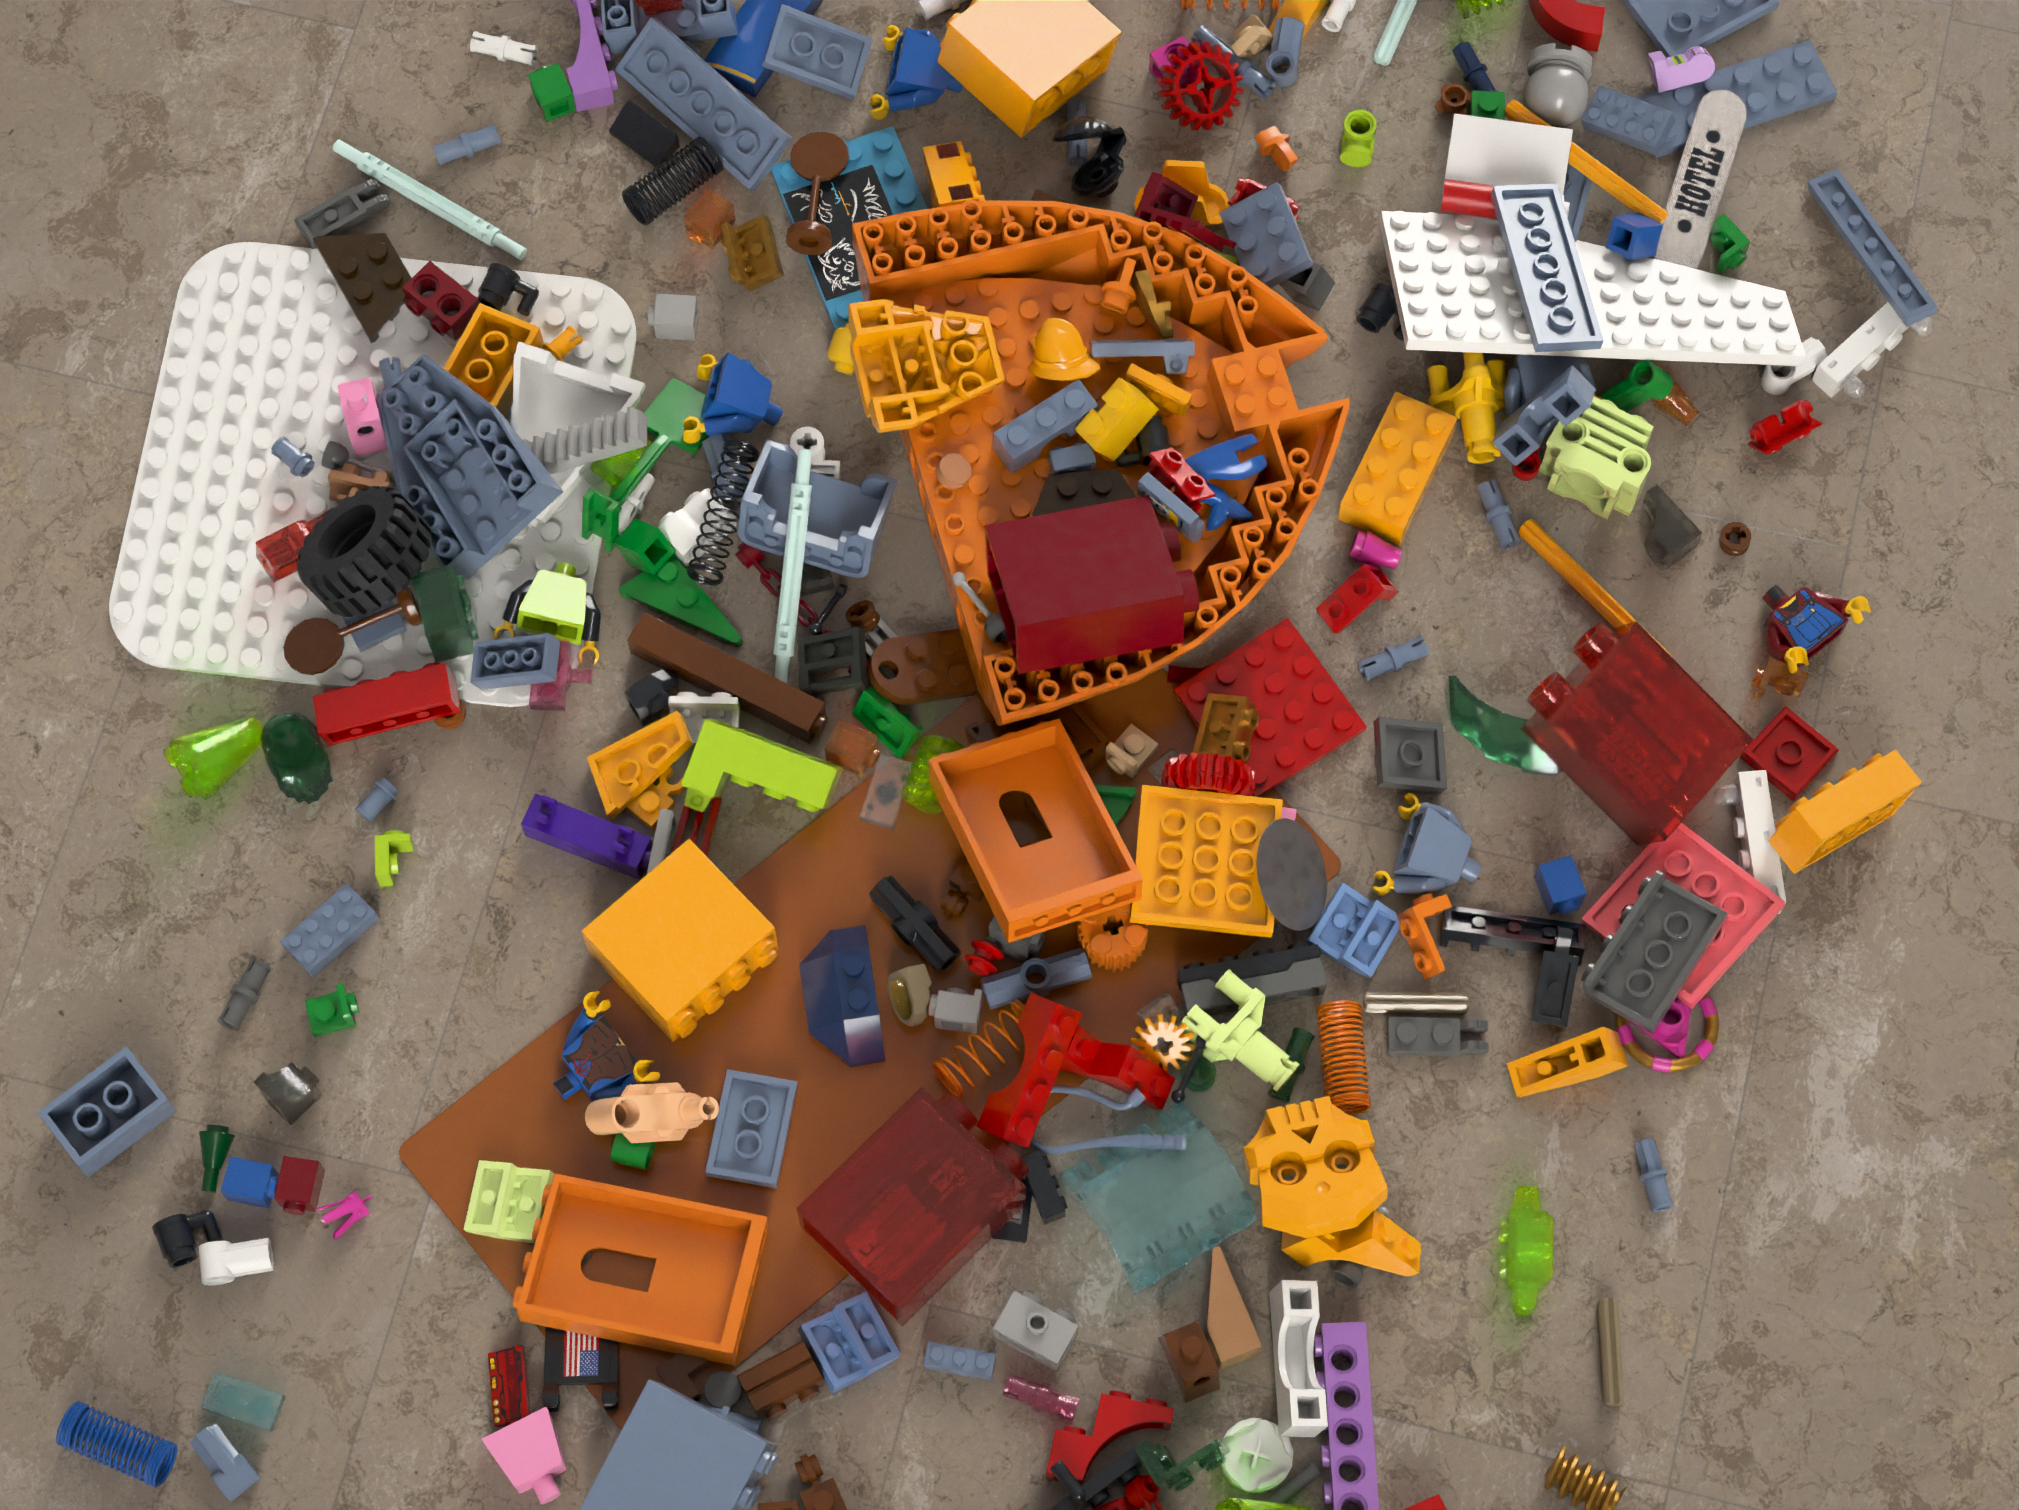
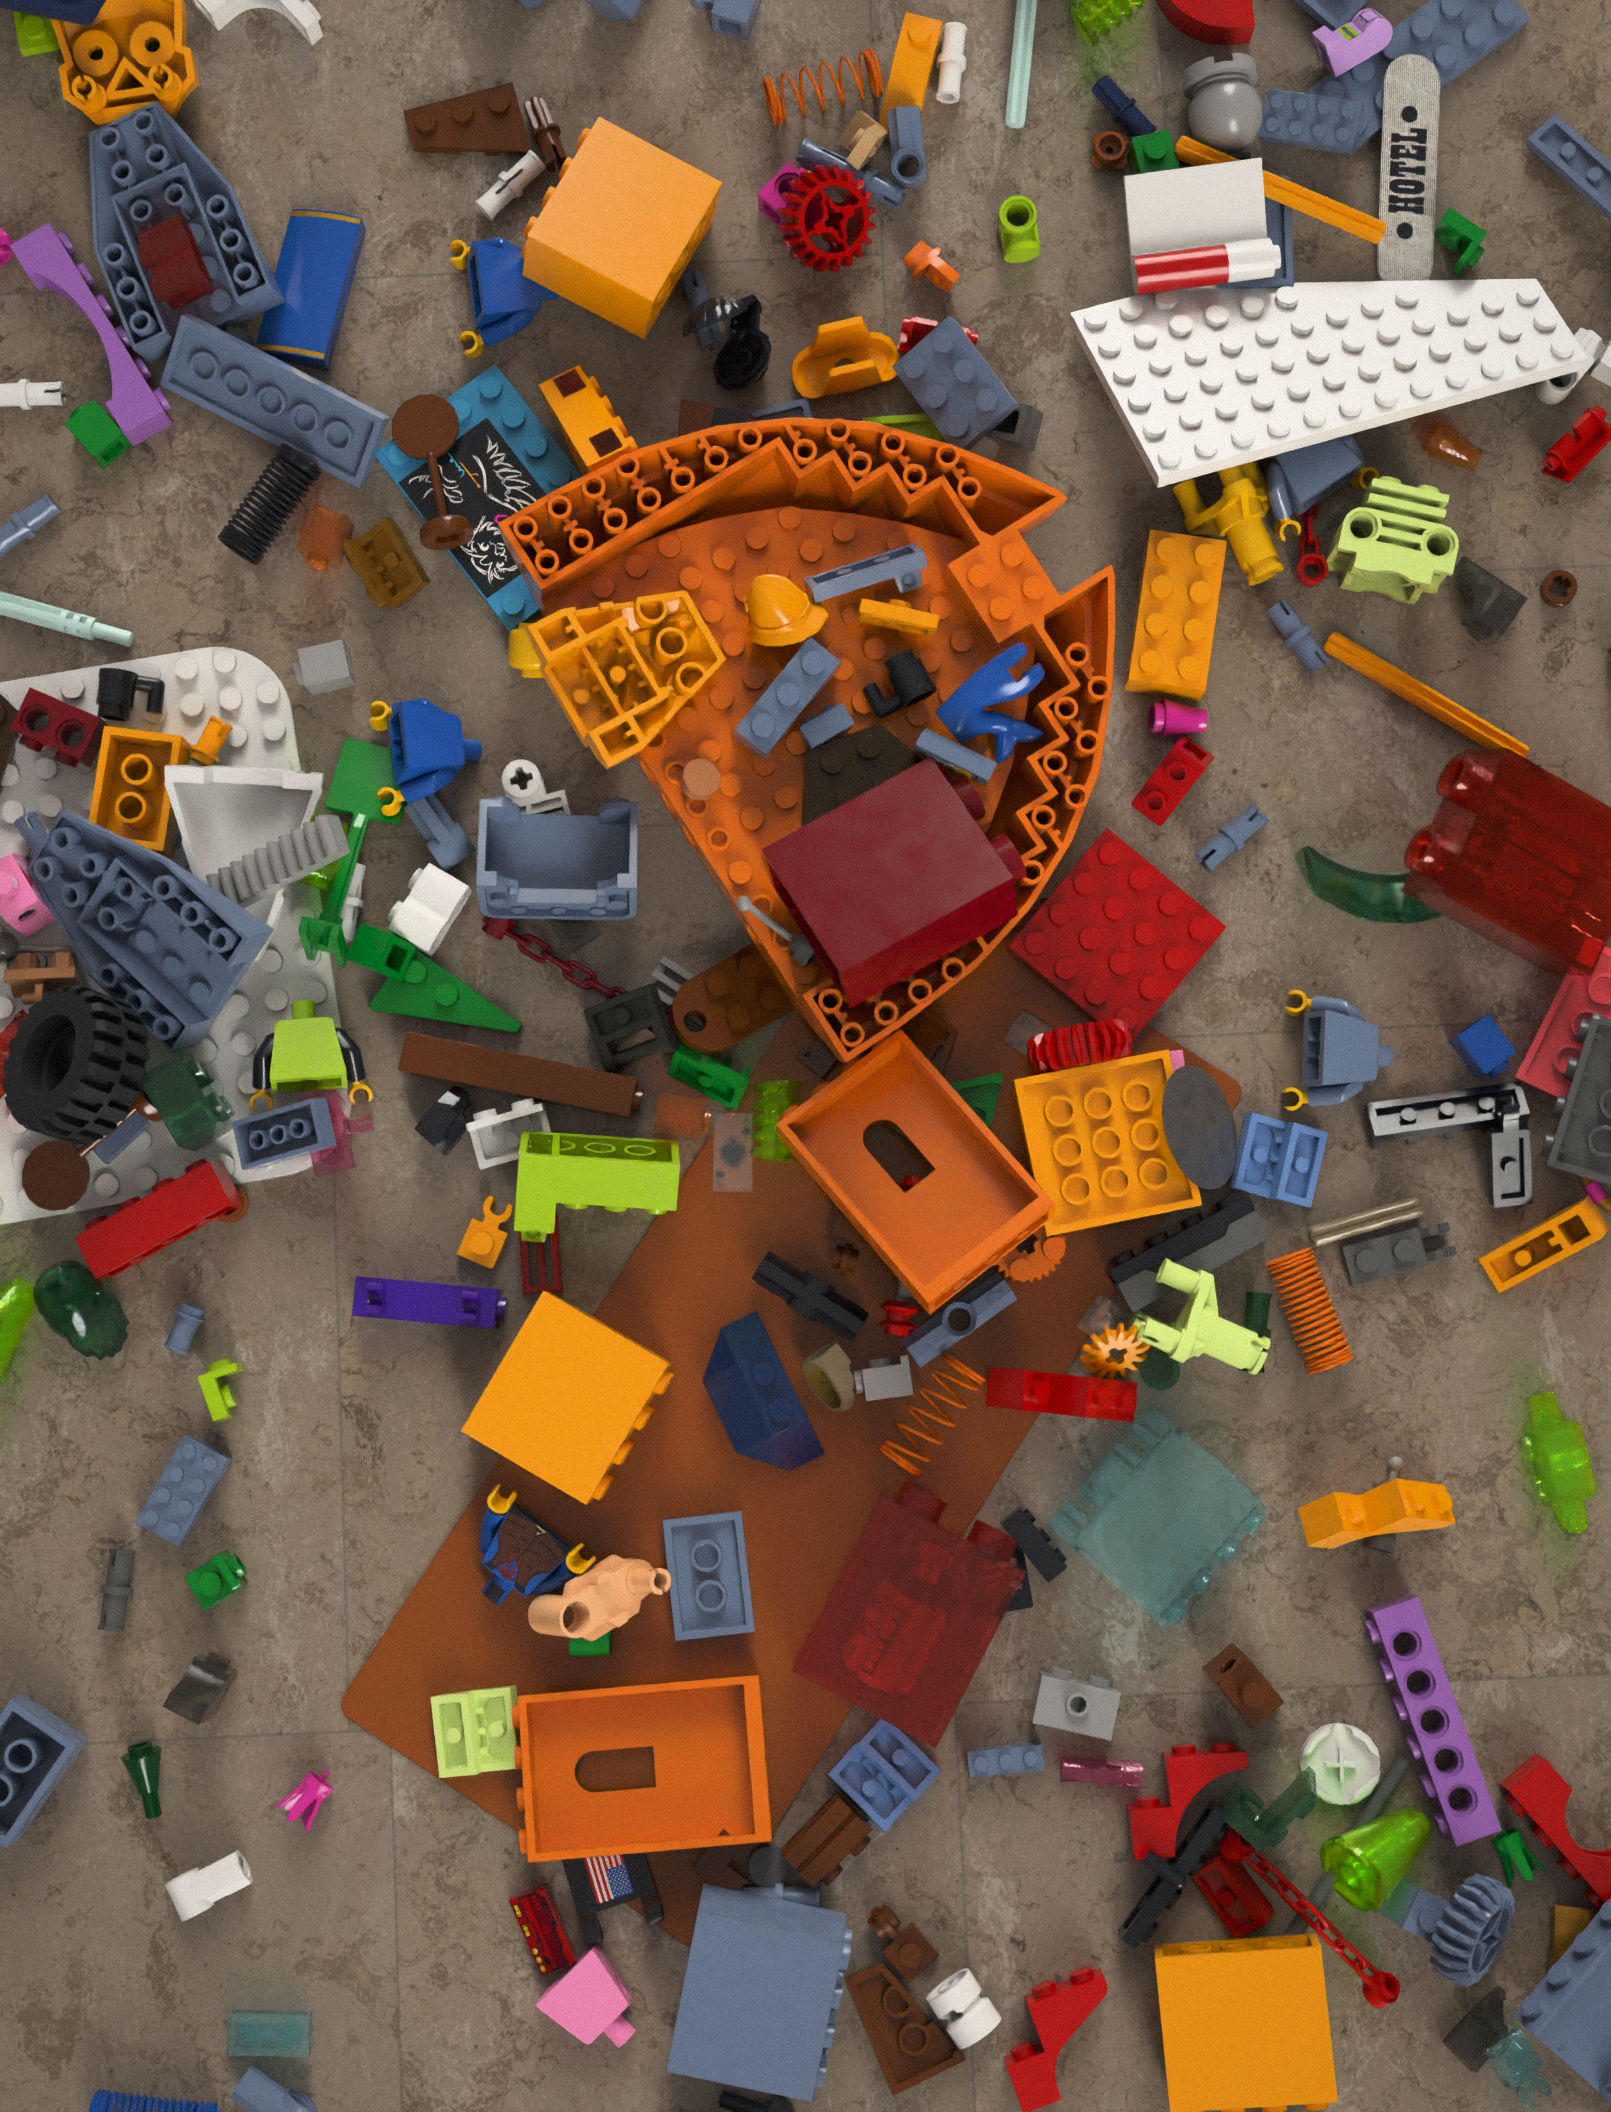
camera: 15 degrees left, 15 degrees up
(177, 1239) = (138, 1880): black piece -> none
(250, 1182) = (196, 1796): blue brick -> none
(299, 1185) = (248, 1784): dark red brick -> none
(637, 761) = (453, 1203): light orange wing -> none
(644, 134) = (219, 454): black slope -> none
(663, 838) = (511, 1290): light grey tile -> none
(743, 460) = (444, 815): black piece -> none
(793, 565) = (554, 935): light aqua axle -> none
(816, 52) = (382, 300): sand blue plate -> none
(816, 627) = (598, 991): black hinge -> none
(863, 615) = (653, 964): reddish brown bush -> none
(1047, 1036) = (996, 1388): red arch -> none
(1118, 421) = (872, 662): yellow brick -> none
(1119, 293) = (820, 514): orange piece -> none
(1130, 751) = (981, 1029): tan bracket -> none
(1134, 1099) = (1119, 1474): sand blue piece -> none
(1155, 312) = (865, 524): pearl gold slope -> none
(1170, 469) = (945, 713): red hinge -> none
(1172, 207) = (841, 390): dark red plate -> none
(1178, 1095) = (1148, 1405): black hinge -> none
(1226, 726) = (1081, 984): pearl gold bracket -> none
(1228, 1322) = (1269, 1633): medium nougat slope -> none
(1298, 1393) = (1343, 1621): white arch -> none
(1308, 1145) = (1339, 1483): light orange brick -> none
(1379, 309) = (1100, 430): black piece -> none
(1410, 755) = (1282, 947): dark grey hinge -> none
(1415, 930) = (1344, 1145): orange bracket -> none
(1546, 268) = (1284, 341): plate -> none
(1559, 401) = (1305, 536): sand blue arch -> none
(1634, 236) = (1357, 263): blue brick -> none
(1643, 383) = (1409, 447): green piece -> none

